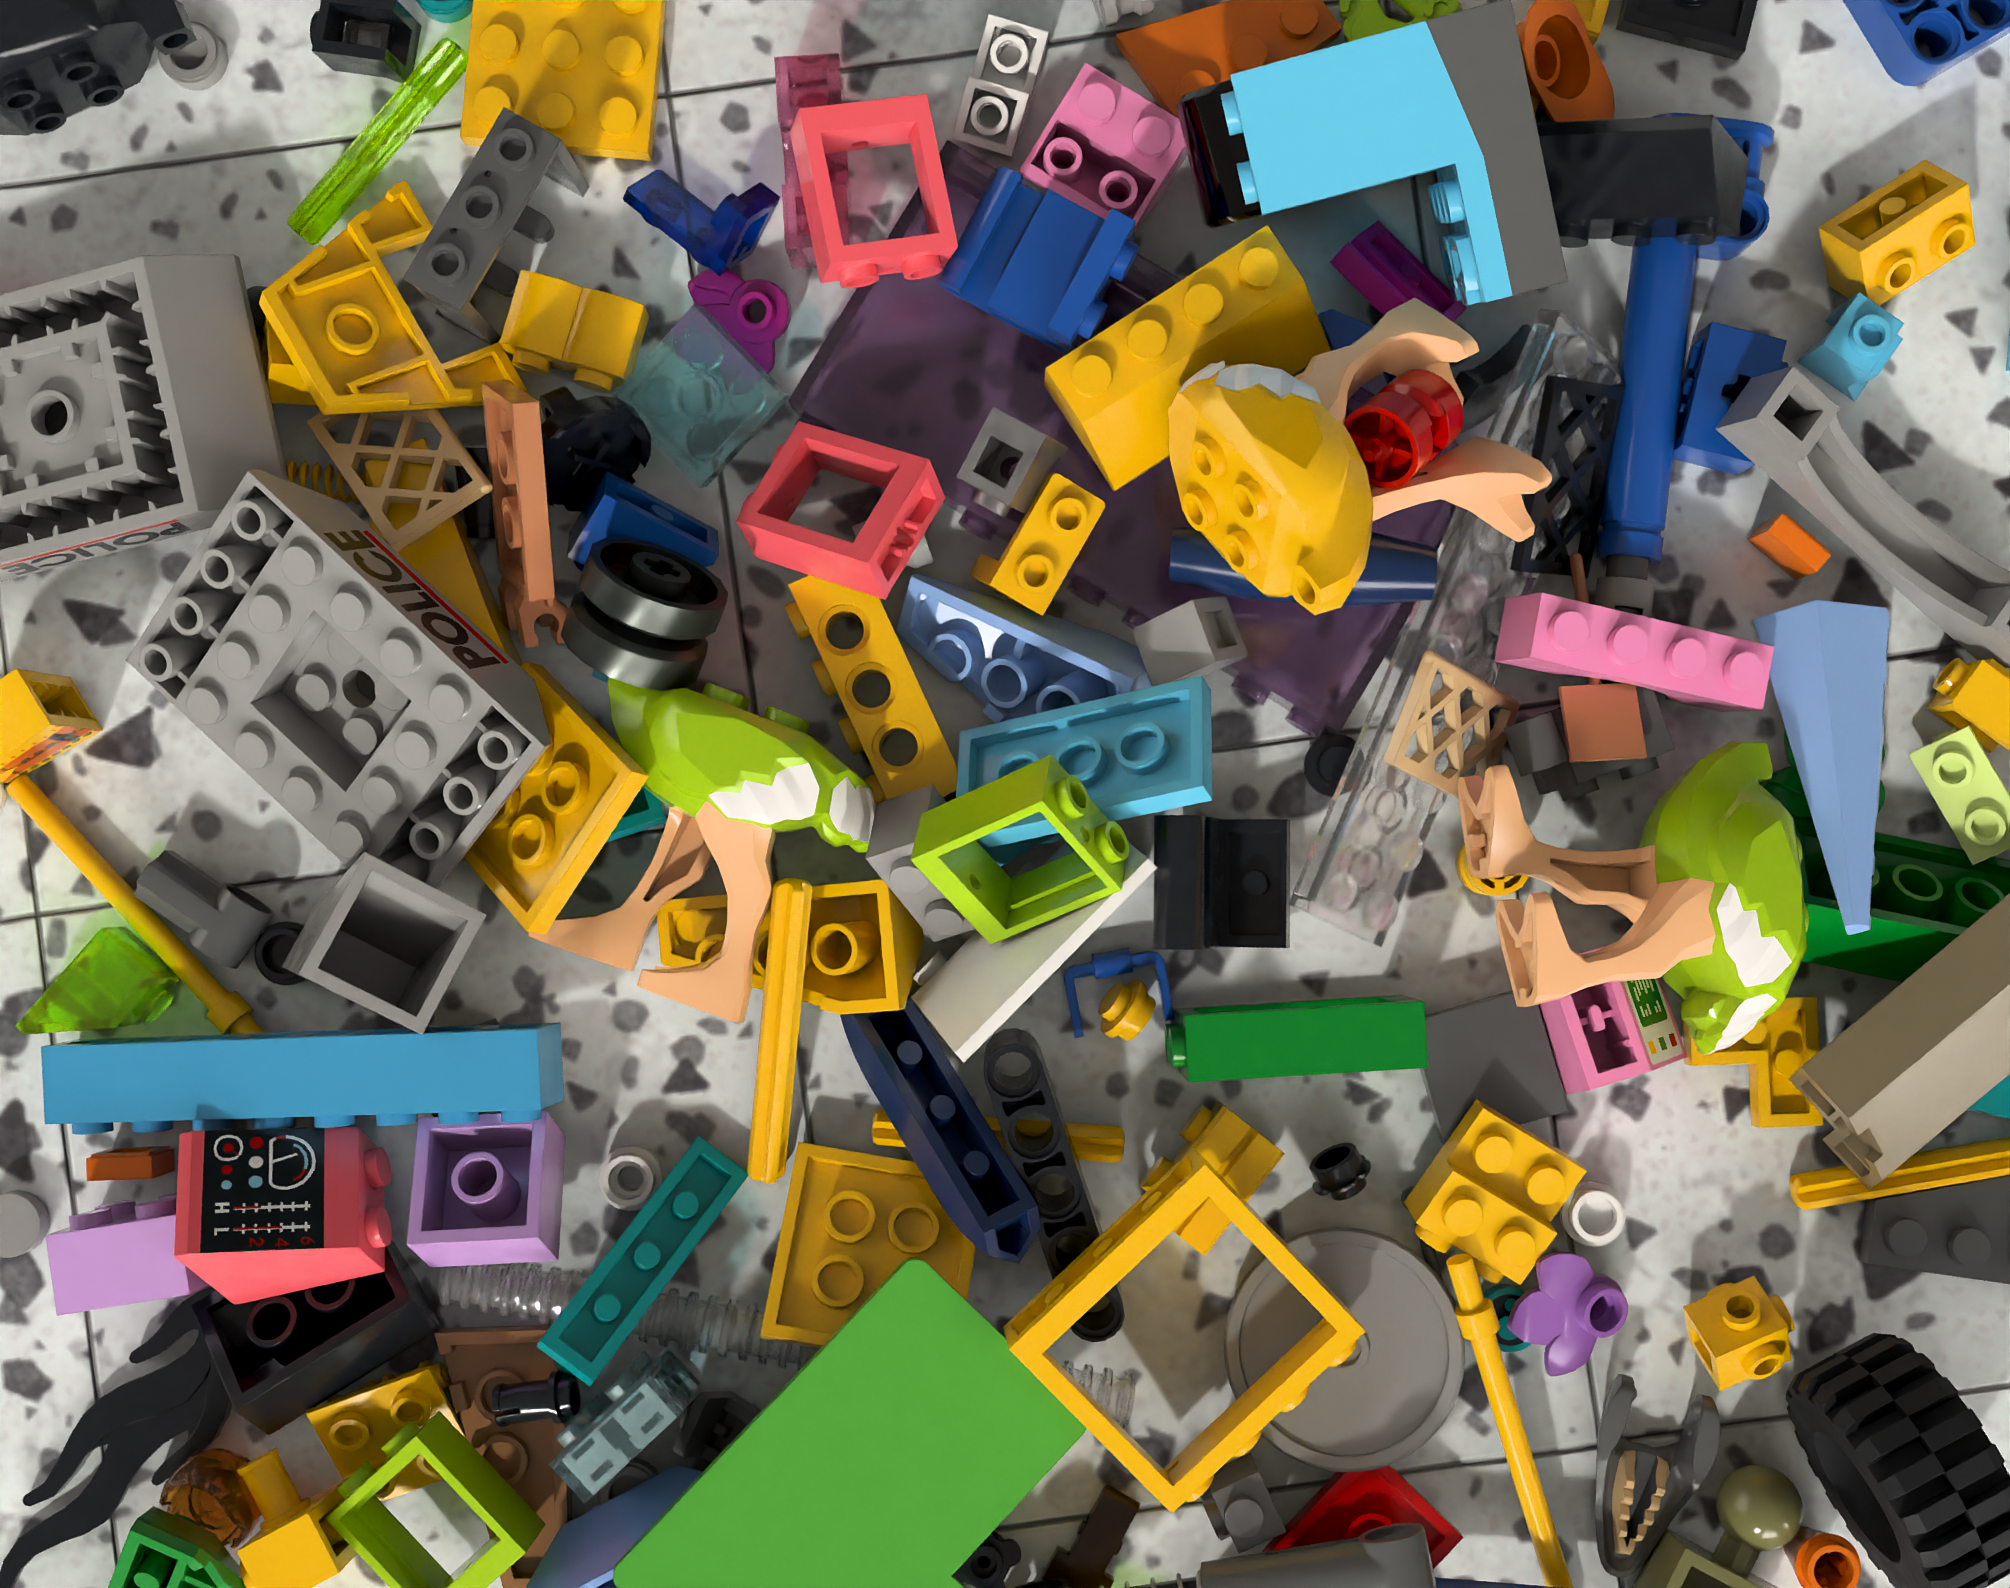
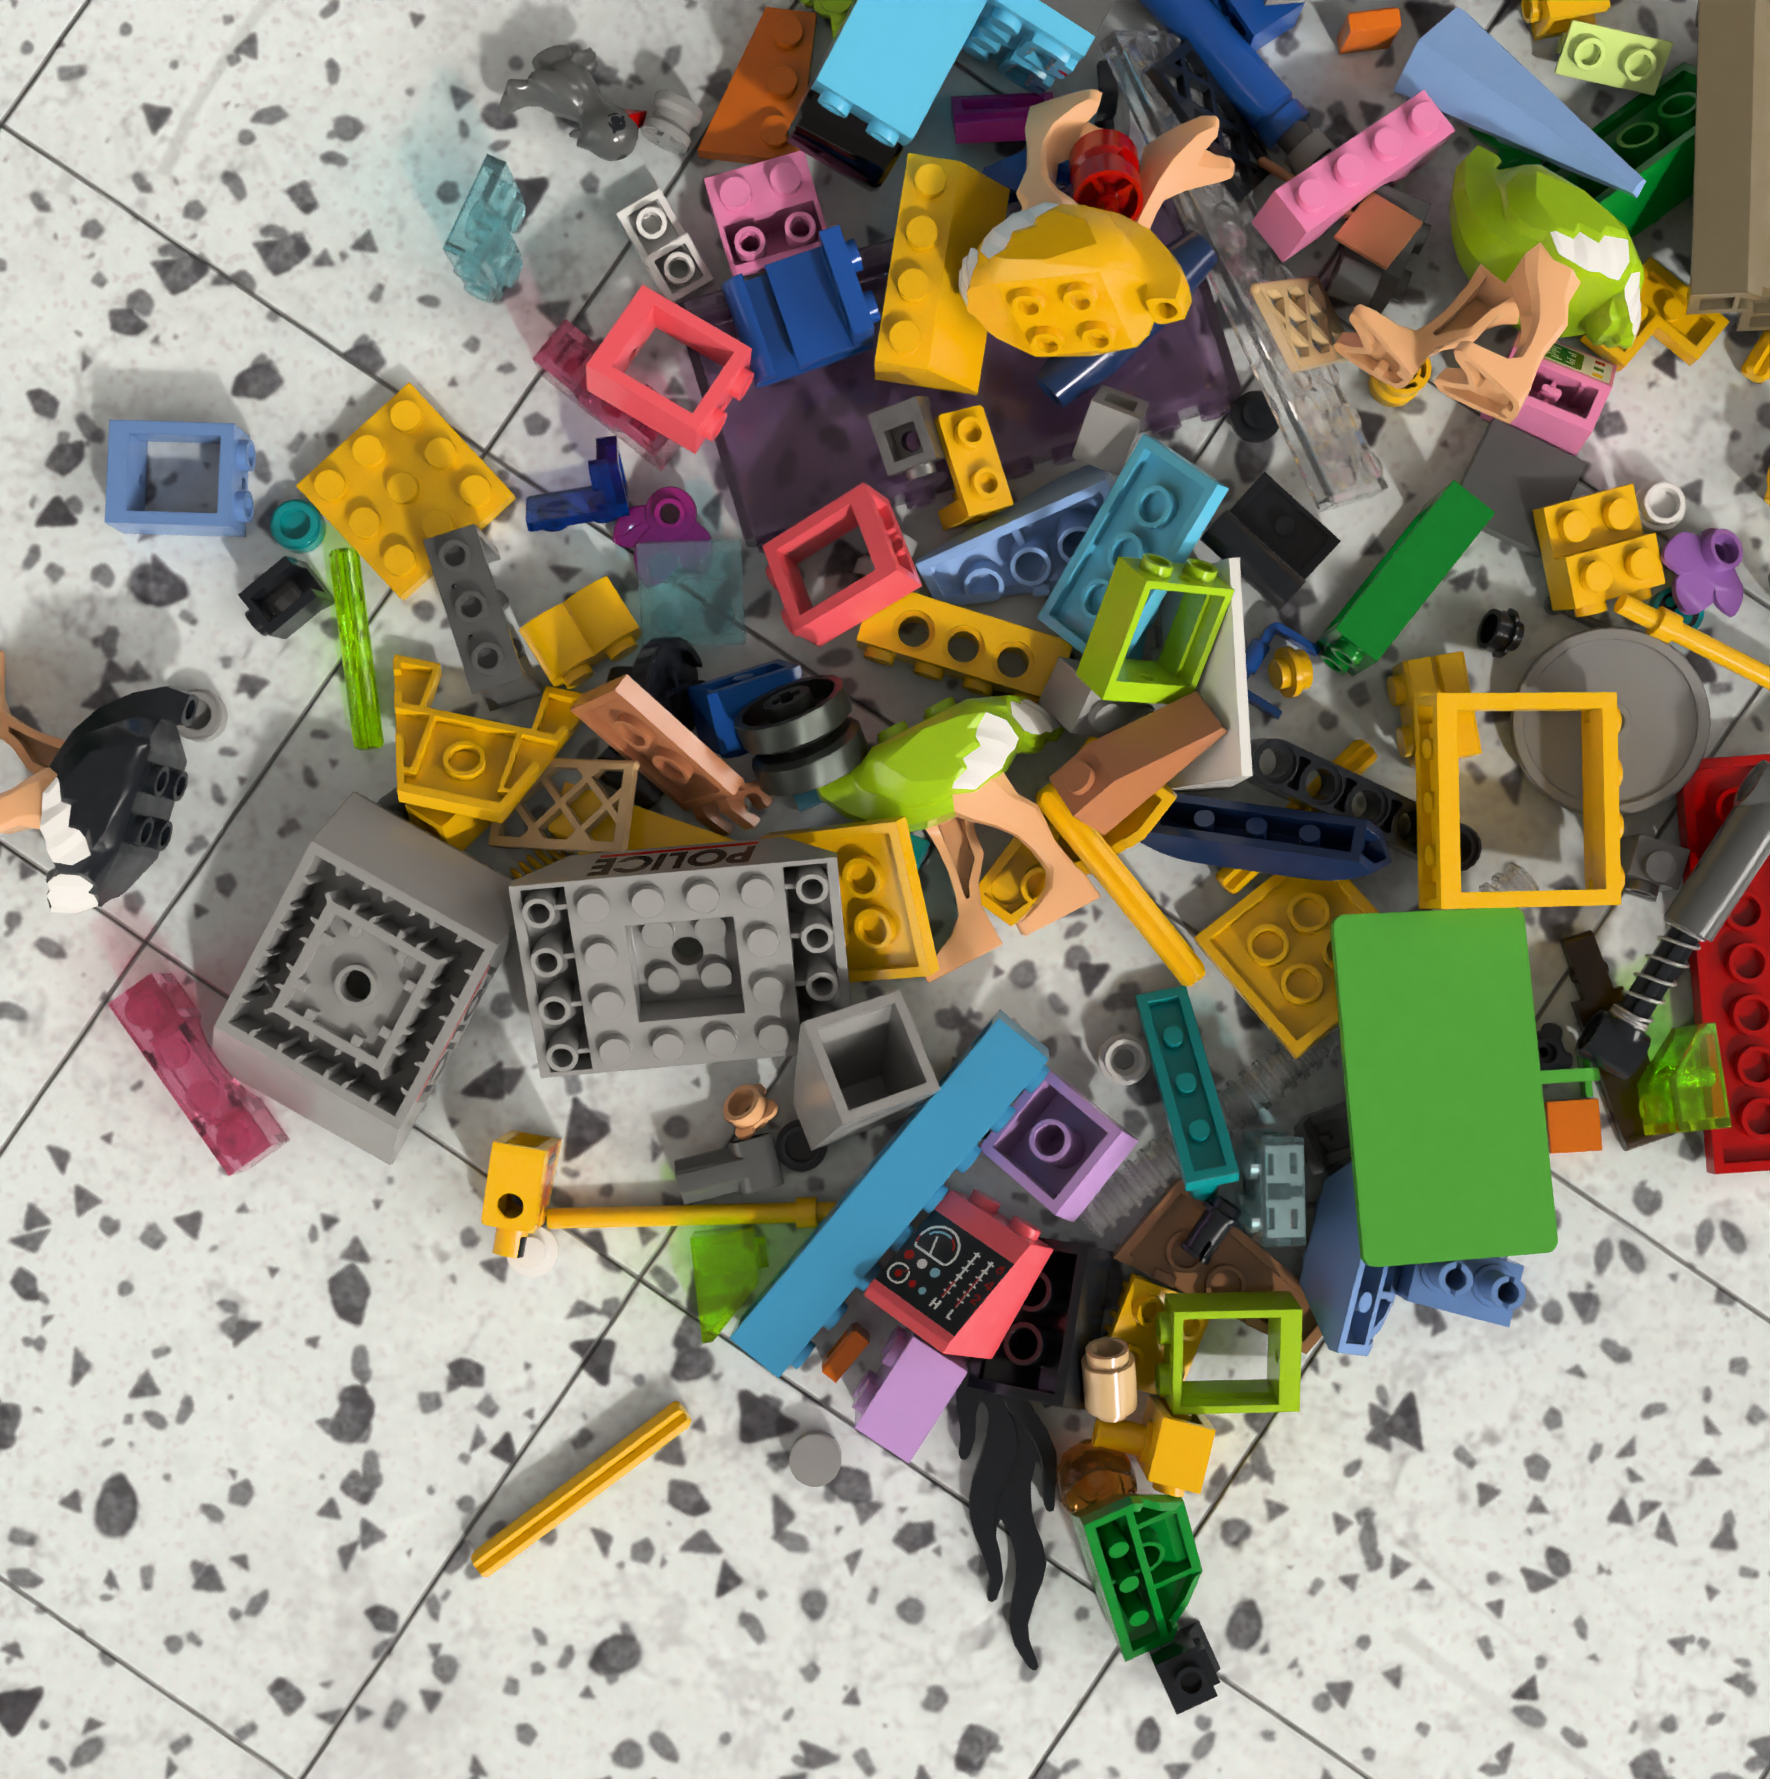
camera: 50 degrees left, 0 degrees up
(275, 876) = (749, 1109): none -> light nougat plate
(306, 1431) = (1109, 1379): none -> tan brick
(888, 942) = (1135, 761): none -> nougat slope

